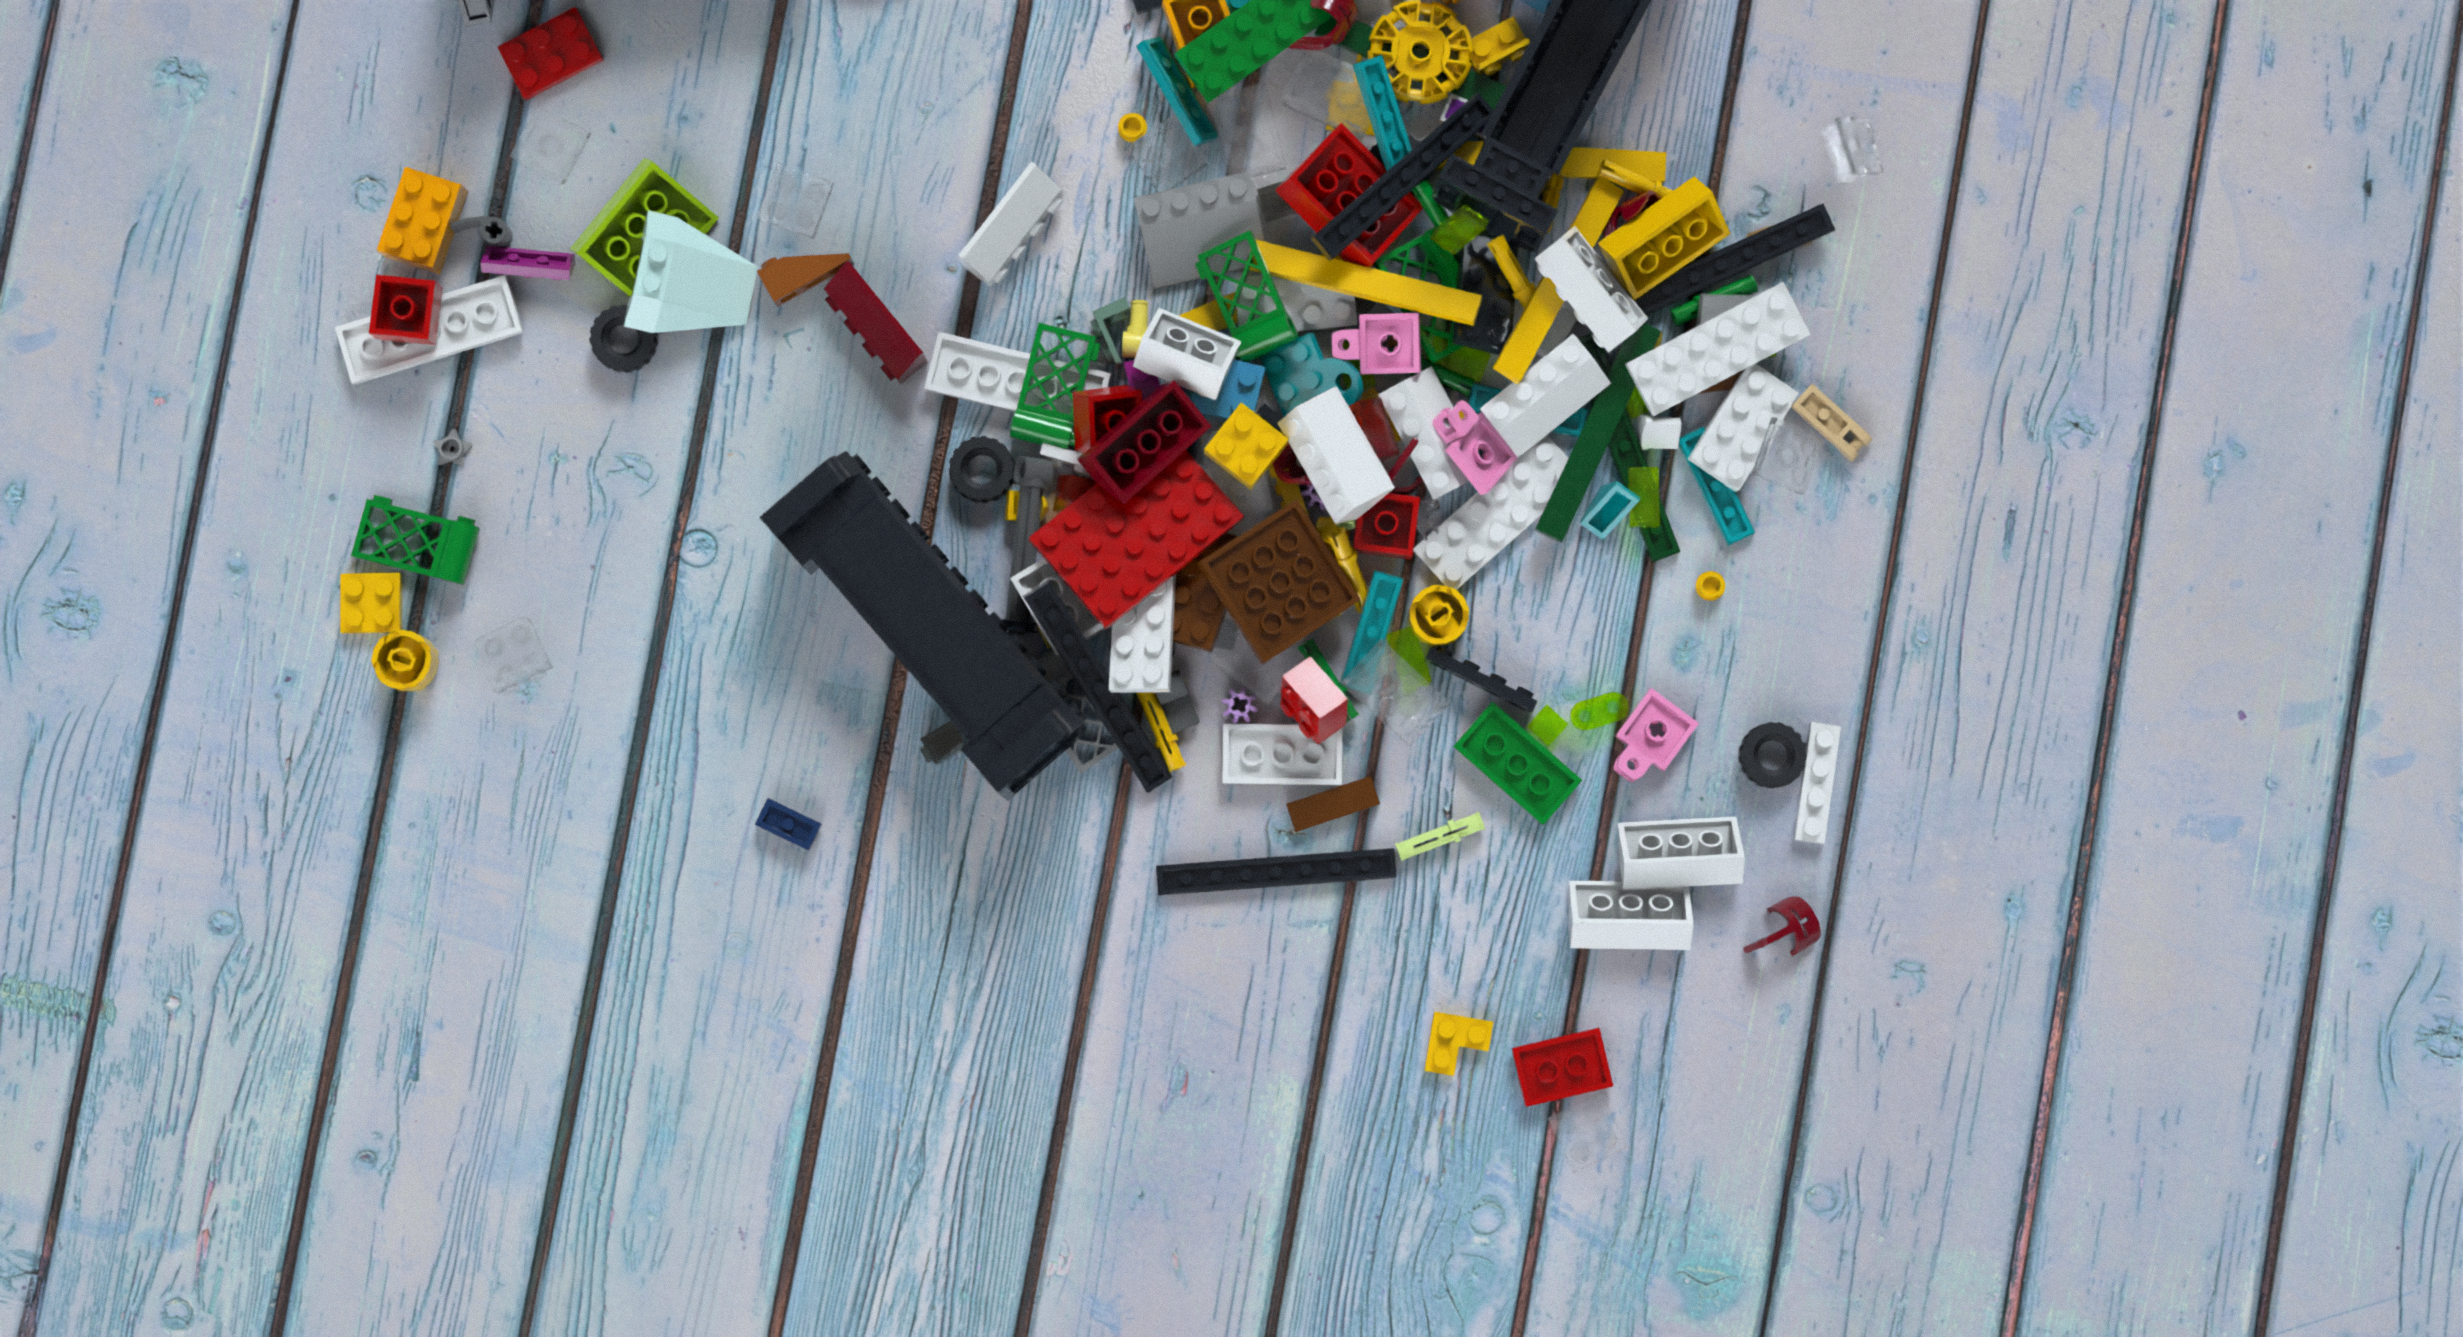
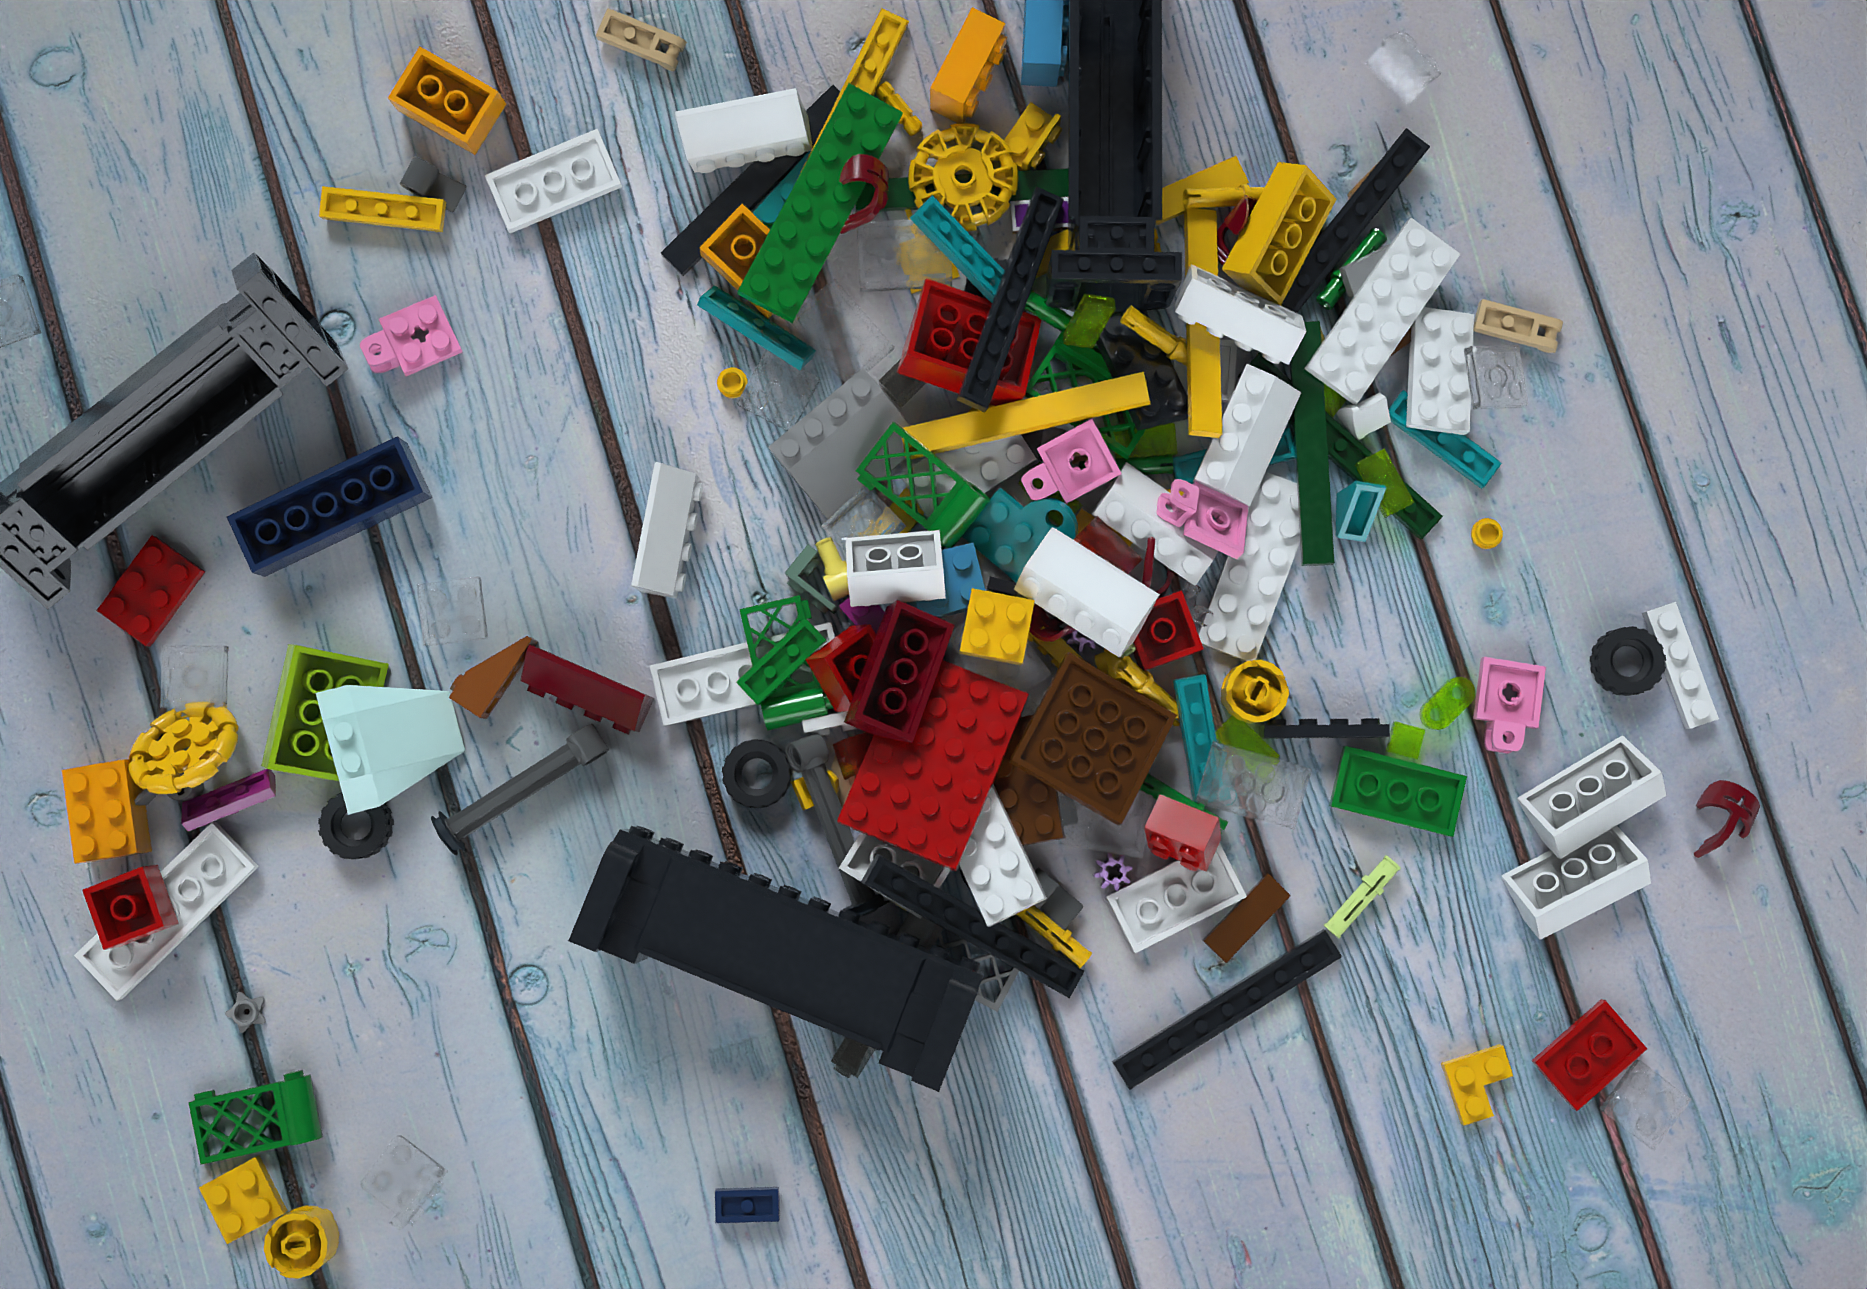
camera: 25 degrees left, 0 degrees up
(490, 203) = (158, 763): none -> yellow plate
(738, 59) = (329, 507): none -> dark blue brick
(846, 372) = (581, 748): none -> dark grey piece
(1051, 384) = (781, 661): none -> green plate
(1182, 297) = (862, 516): none -> clear plate

